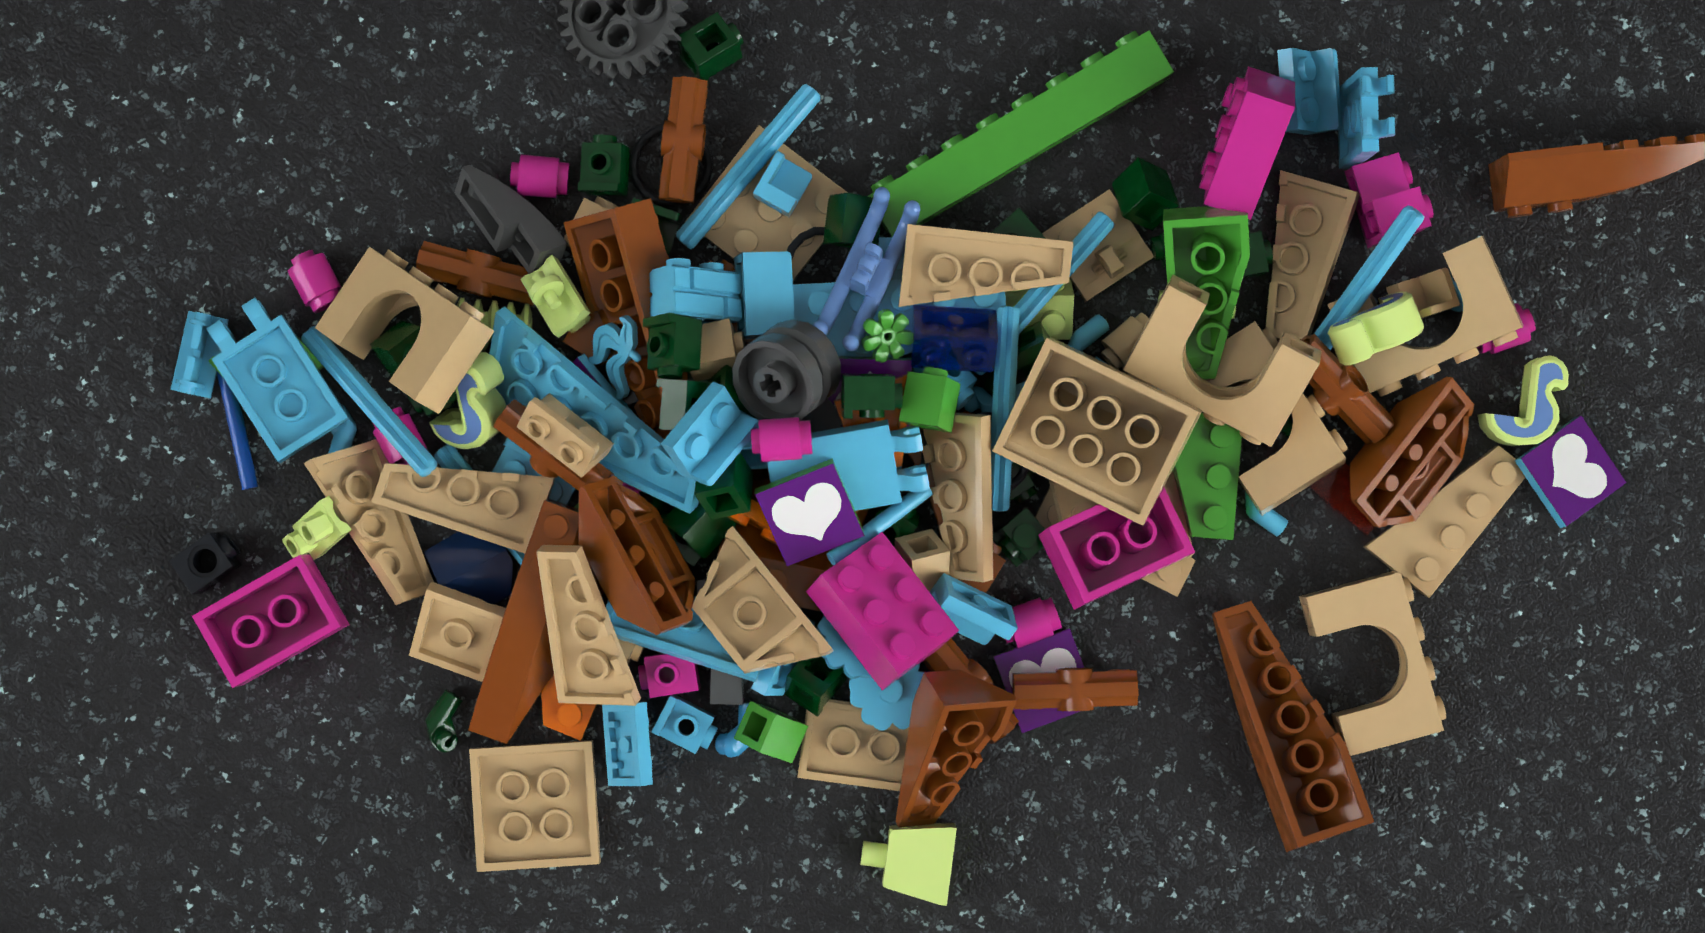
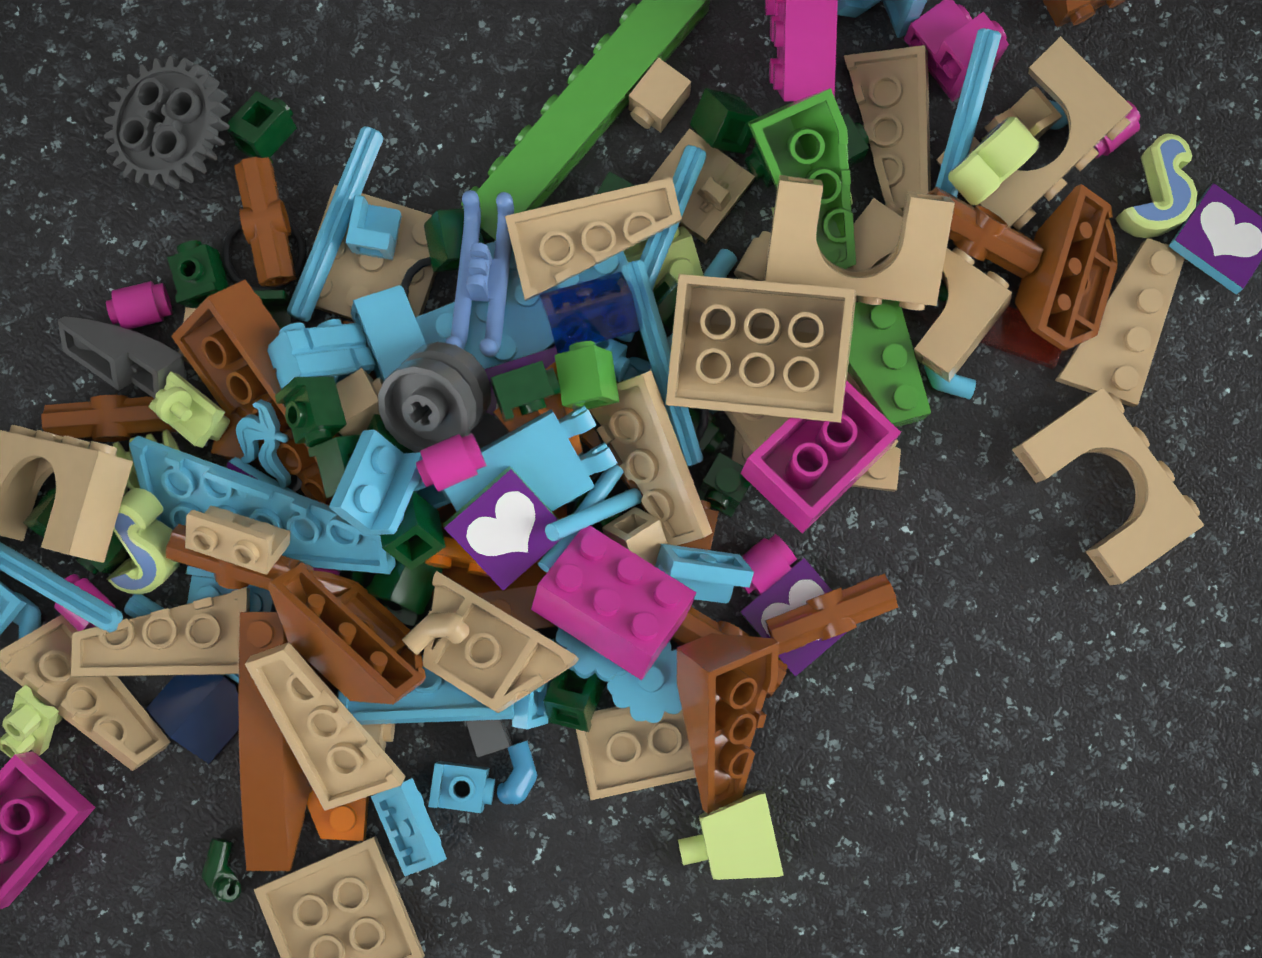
camera: 15 degrees left, 5 degrees down
(456, 631) = (198, 775): tan hinge -> none
(668, 675) = (427, 743): dark pink brick -> none
(717, 577) = (436, 625): none -> tan arm
(771, 732) = (548, 764): bright green brick -> none
(887, 335) = (522, 330): bright green plant -> none
(892, 526) = (593, 514): none -> medium azure bar
(1091, 148) = (658, 96): none -> tan brick
(1291, 741) = (1064, 595): dark orange wedge -> none

